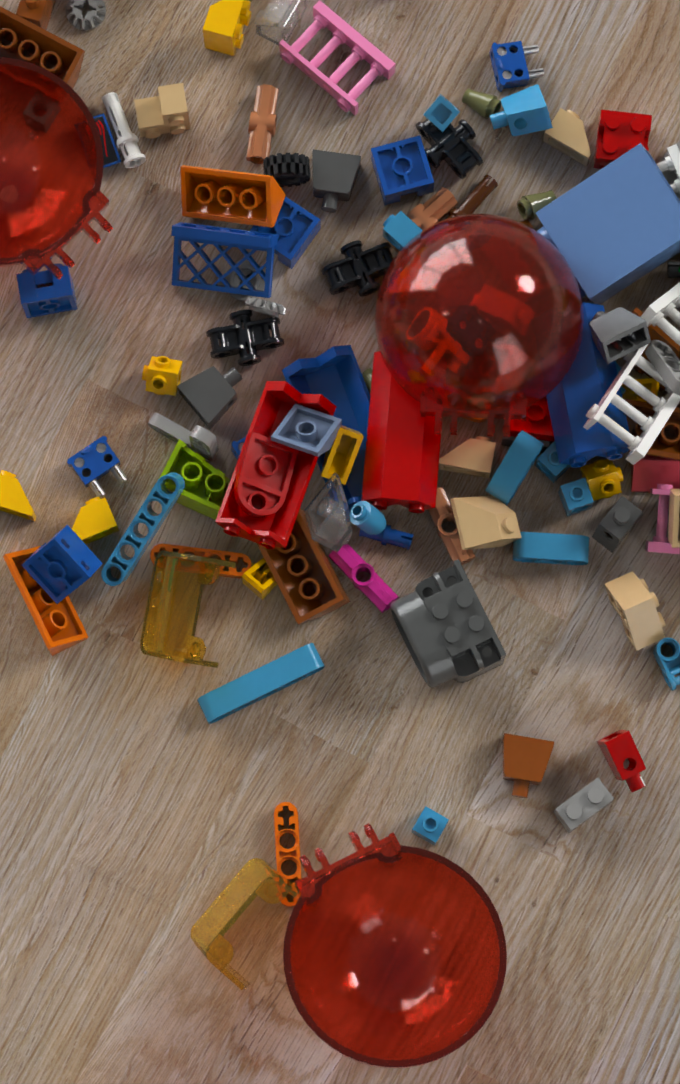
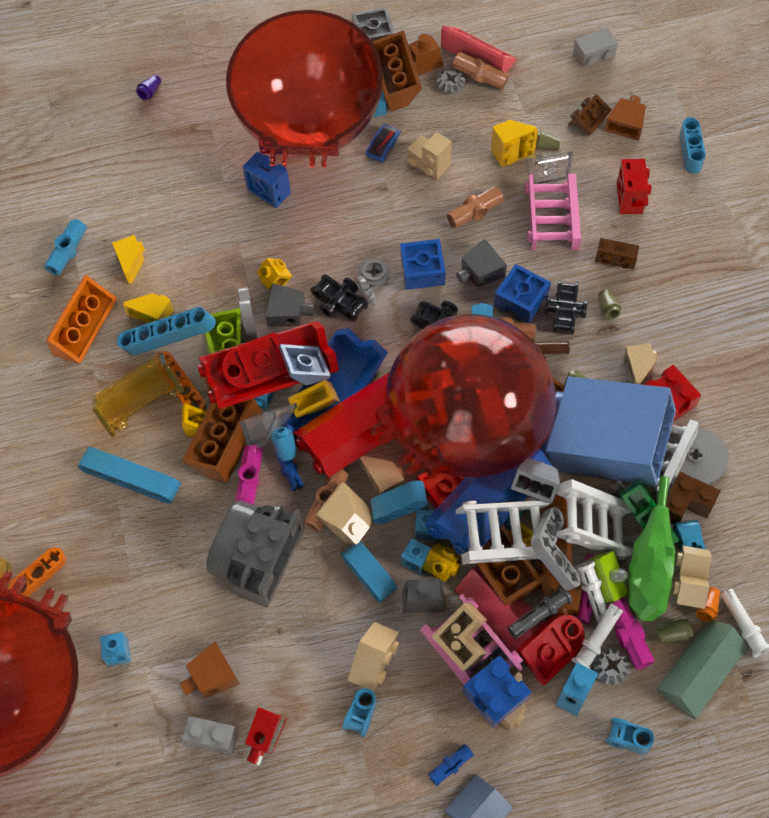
camera: 50 degrees right, 15 degrees down
(62, 564) = (106, 307): blue piece -> none
(92, 460) = (189, 283): blue piece -> none
(126, 139) = (396, 153): white pin -> none
(223, 237) = (380, 231): blue fence -> none
(230, 196) = (413, 218): orange slope -> none
(288, 168) = (459, 236): black tyre -> none
(434, 44) = (617, 253): none -> reddish brown bracket
(441, 112) = (575, 279): dark azure brick -> none
(509, 62) = (647, 301): blue piece -> none
(523, 112) = (625, 326): dark azure torso -> none

